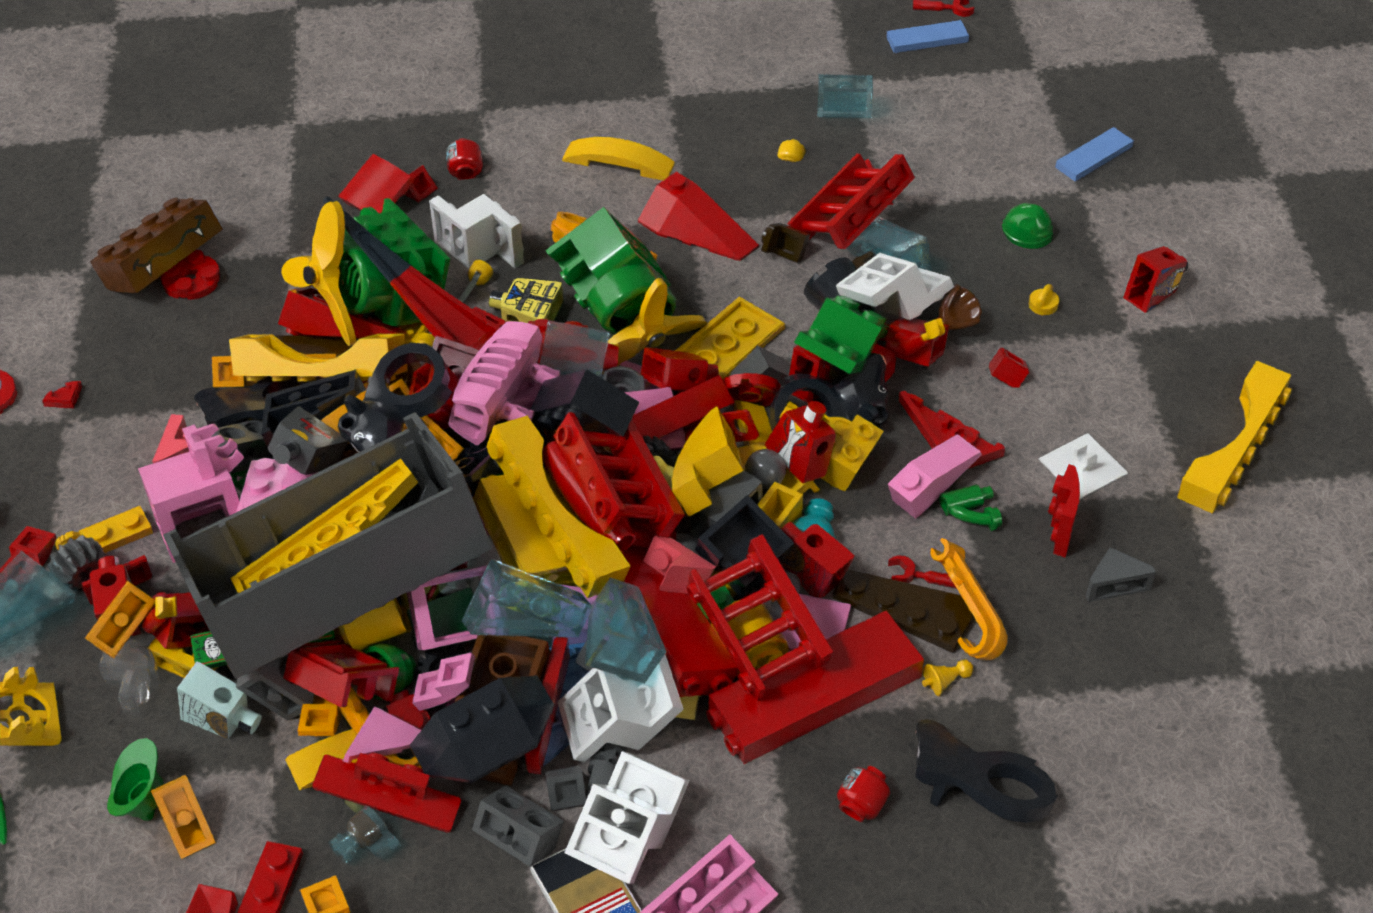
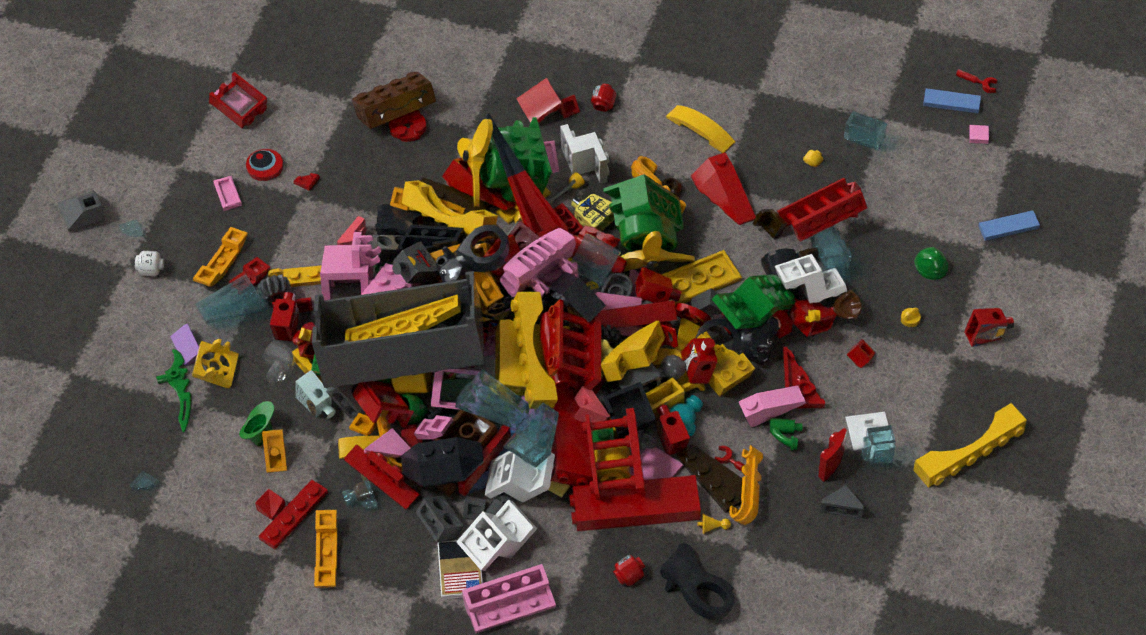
camera: 25 degrees right, 5 degrees up
(120, 620) = (281, 332): light orange slope -> none
(986, 63) = (978, 134): none -> bright pink tile
(1121, 476) = (878, 446): none -> clear light blue brick

